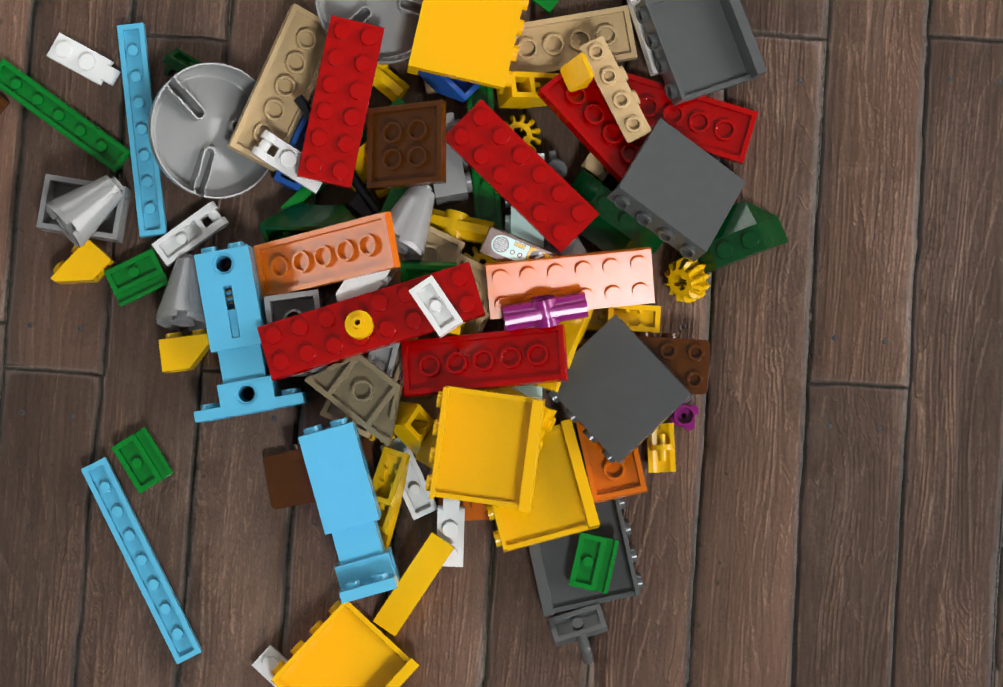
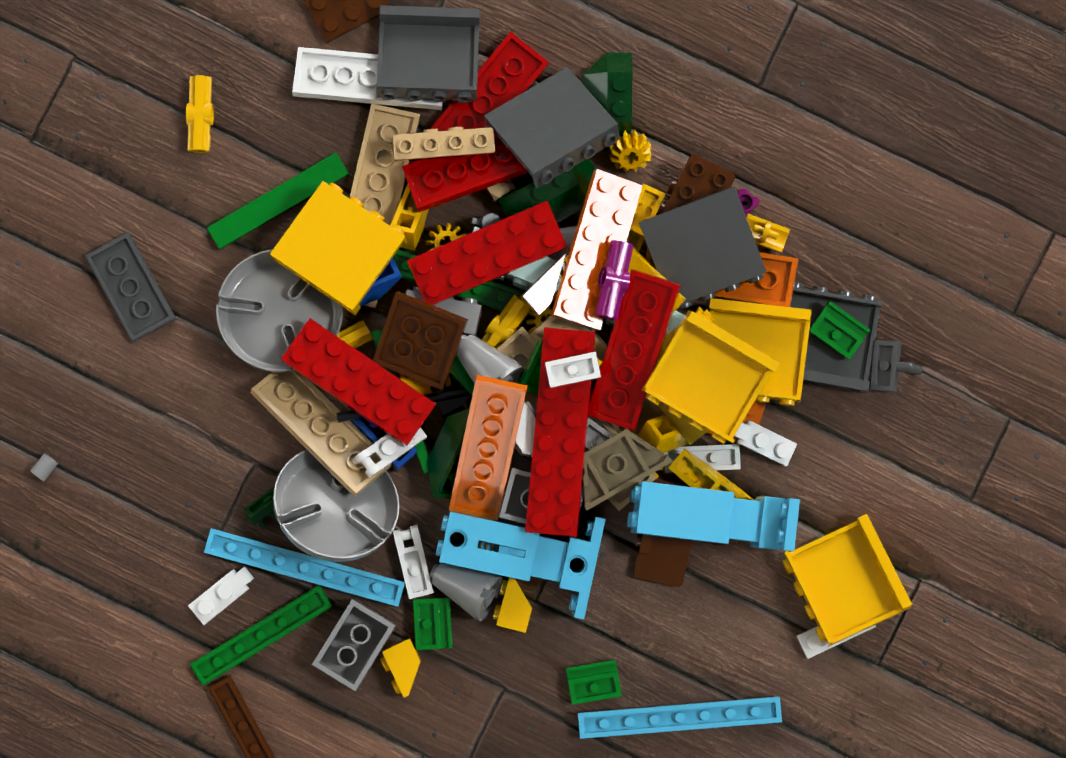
camera: 70 degrees left, 0 degrees up
(85, 208) = (359, 639): light grey cone -> none
(362, 330) = (567, 442): yellow tile -> none
(413, 584) = (793, 486): yellow slope -> none
(577, 73) = (416, 170): yellow slope -> none

